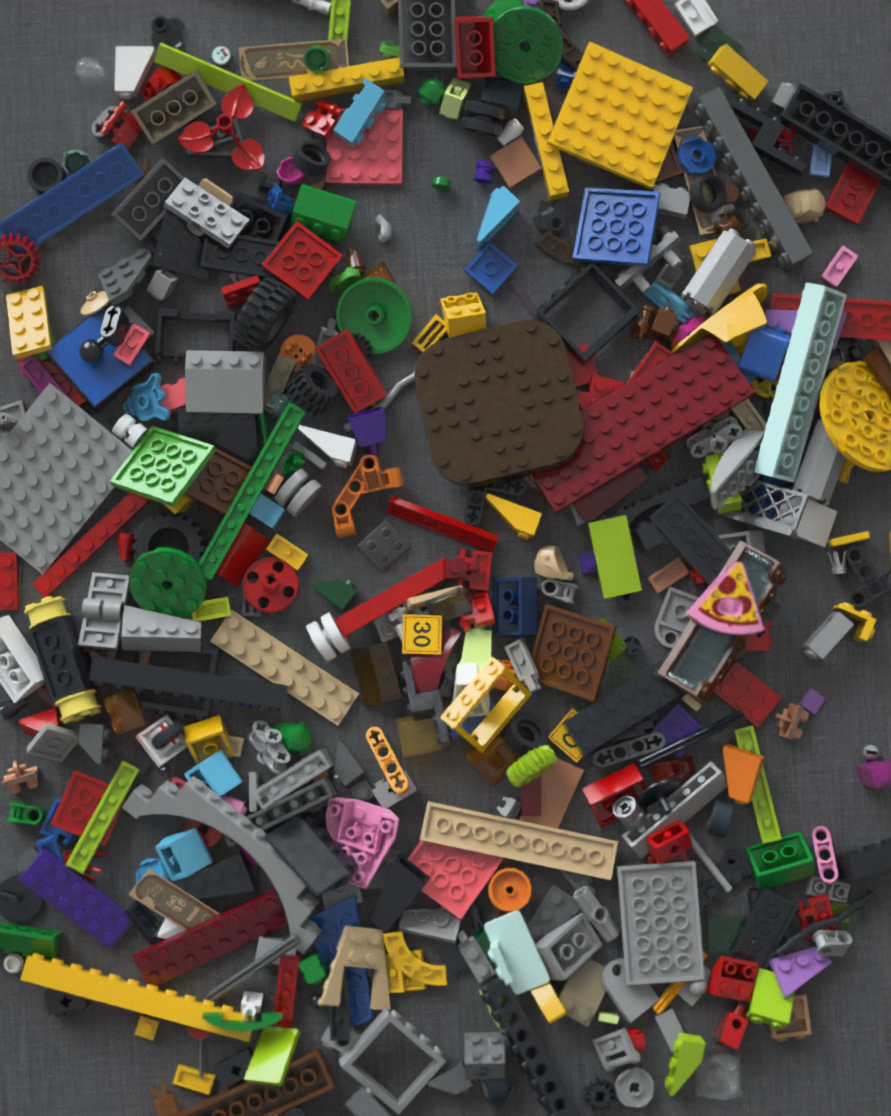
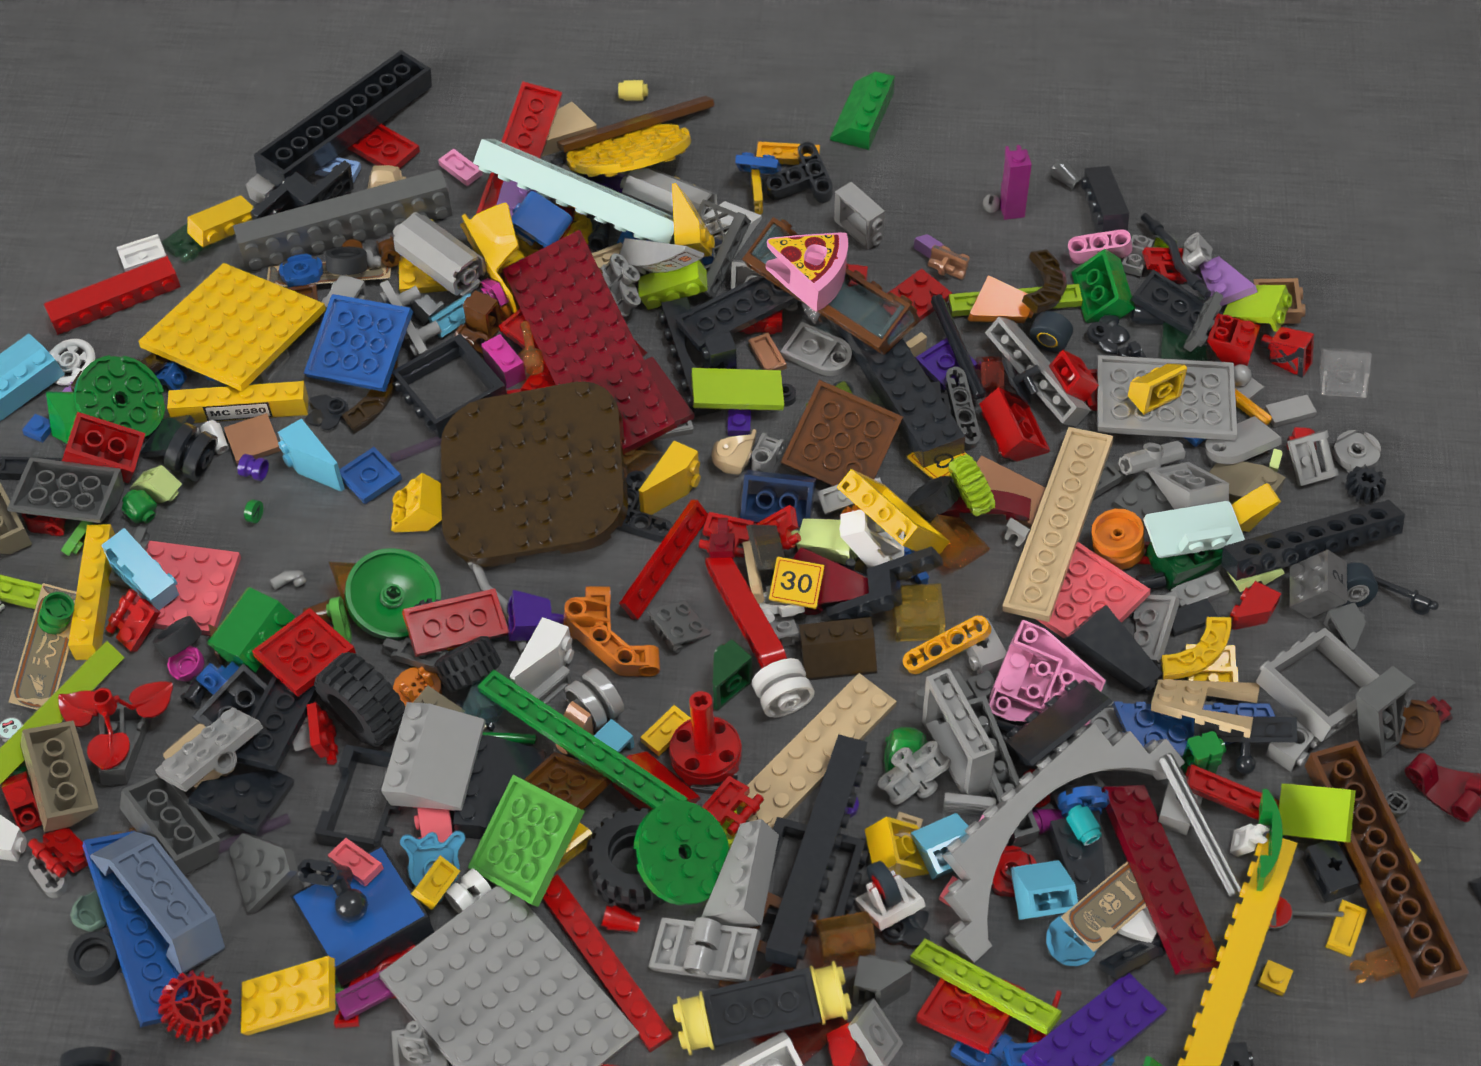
camera: 85 degrees left, 30 degrees down
(89, 209) = (164, 897): none -> sand blue slope
(94, 303) = (286, 910): tan dish -> none
(125, 406) = (435, 882): none -> yellow plate
(162, 284) = (285, 828): light grey brick -> none
(224, 607) = (726, 801): none -> red plate
(233, 880) = (1084, 824): none -> teal brick
(259, 879) = (1086, 796): none -> blue plate
(292, 464) = (554, 698): green plate -> none
(423, 332) = (450, 554): yellow tile -> none
(465, 1006) = (1256, 606): none -> red slope
(618, 379) = (529, 355): none -> clear orange piece
(621, 352) = (503, 361): none -> dark pink brick
(629, 813) = (1037, 409): flat silver wheel -> none
(659, 914) = (1157, 387): none -> yellow slope
(686, 1058) = (1328, 397): lime slope -> none
(710, 865) = (1109, 348): light grey bar -> none
(744, 952) = (1204, 322): none -> dark grey plate
(771, 817) = (1053, 283): none -> dark brown tile
(772, 489) = (688, 225): none -> yellow slope
(837, 568) = (786, 201): flat silver piece -> none
(865, 628) = (850, 173): yellow bracket -> none
(875, 536) = (766, 165): none -> blue plate

